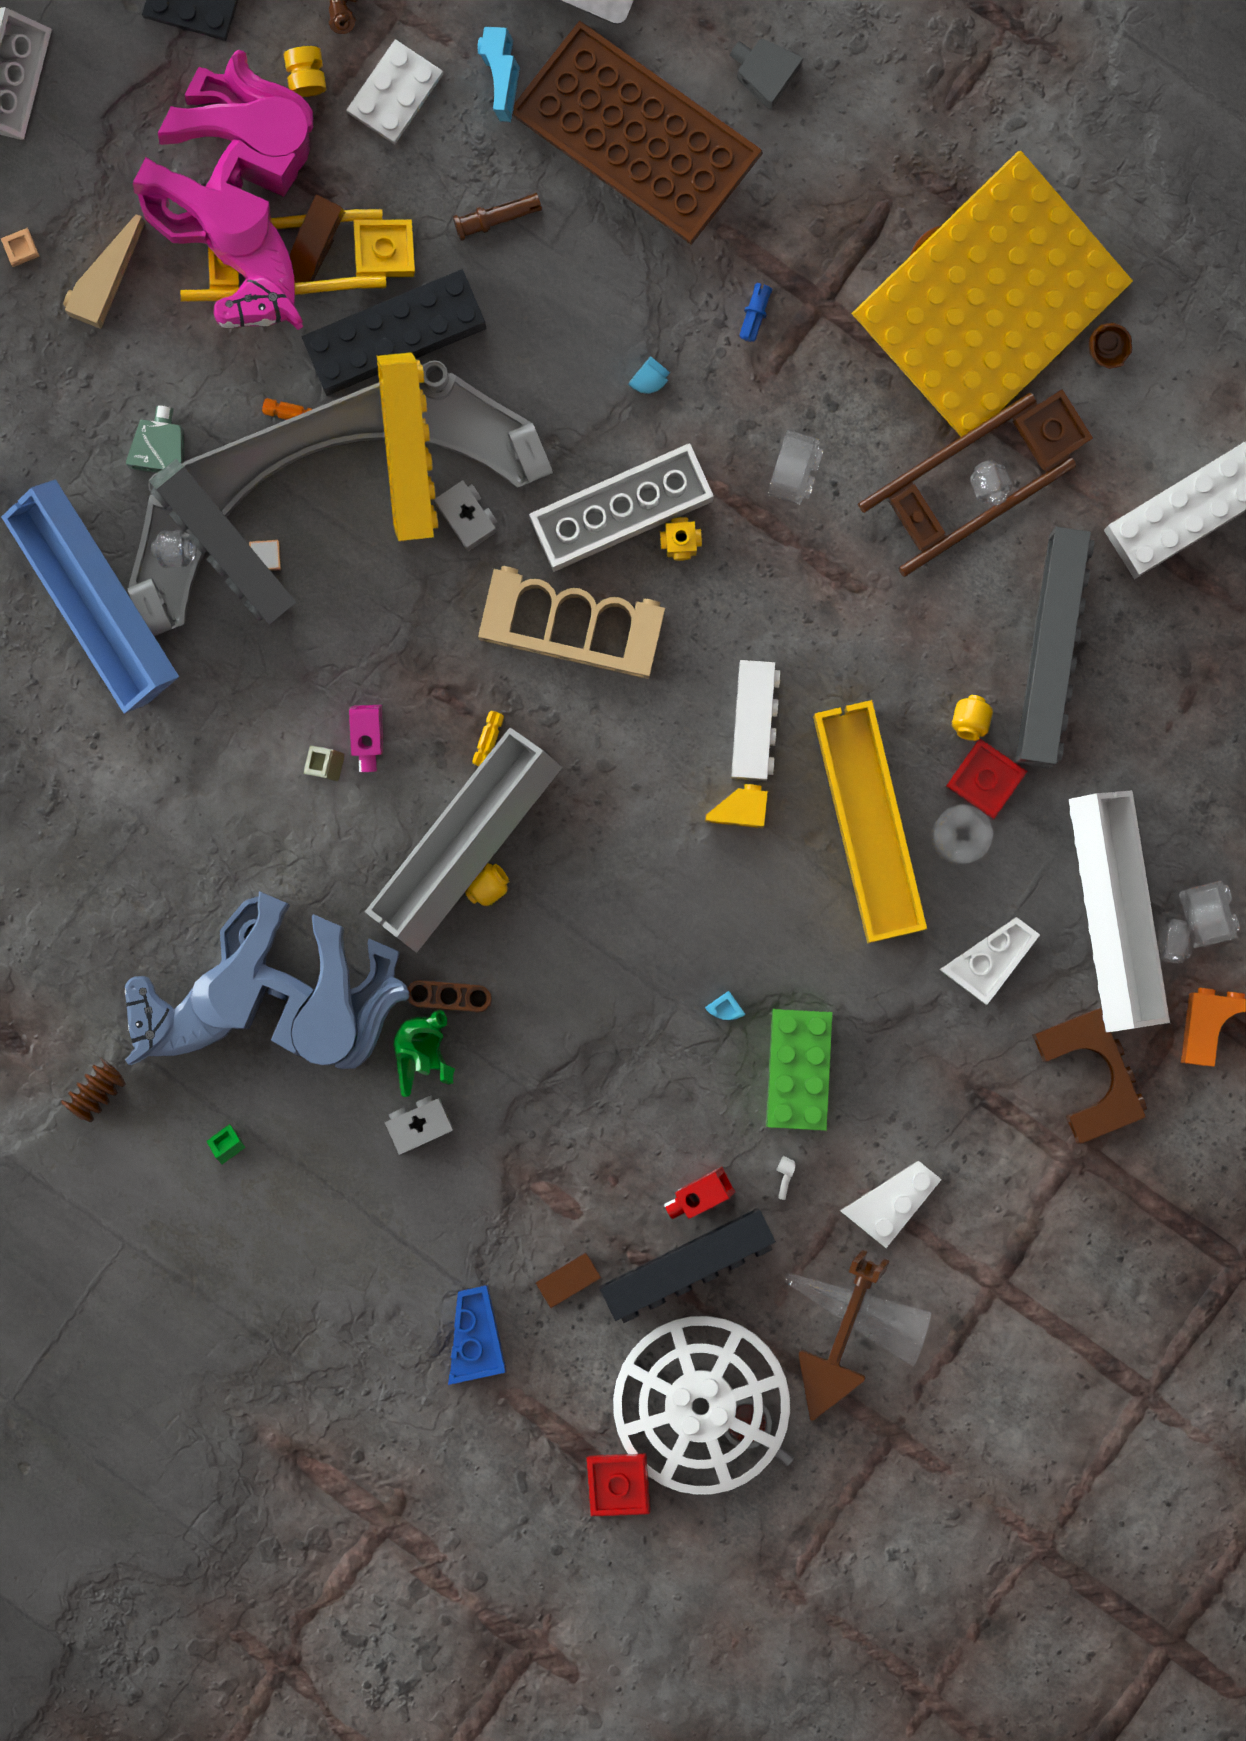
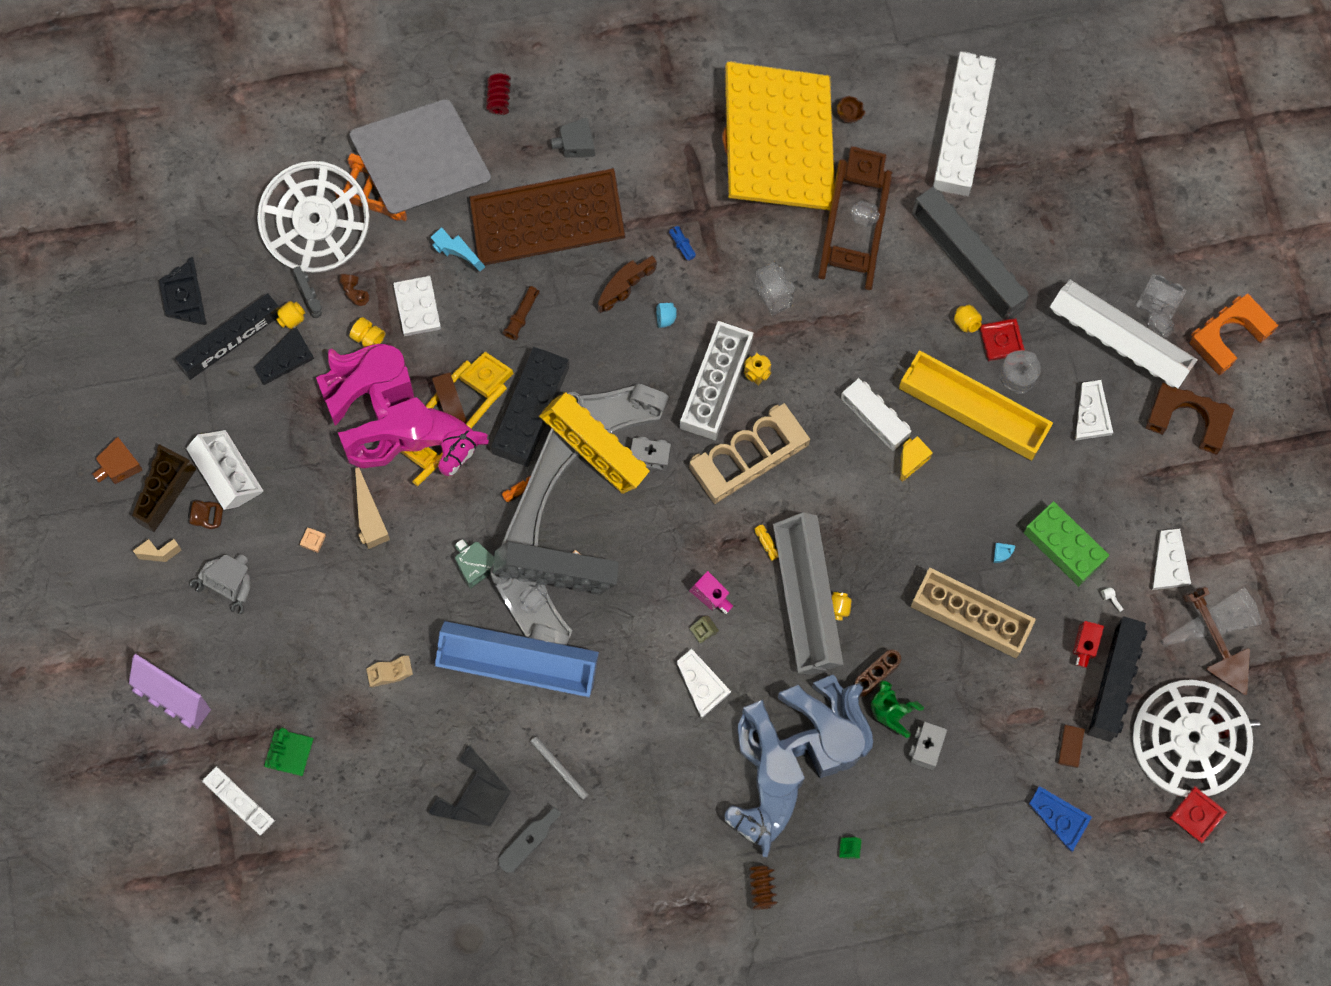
camera: 50 degrees left, 15 degrees down
(22, 754) = (559, 768): none -> light grey bar
(259, 818) = (702, 683): none -> white wing
(616, 1039) = (973, 613): none -> tan brick
(630, 291) = (619, 286): none -> reddish brown slope

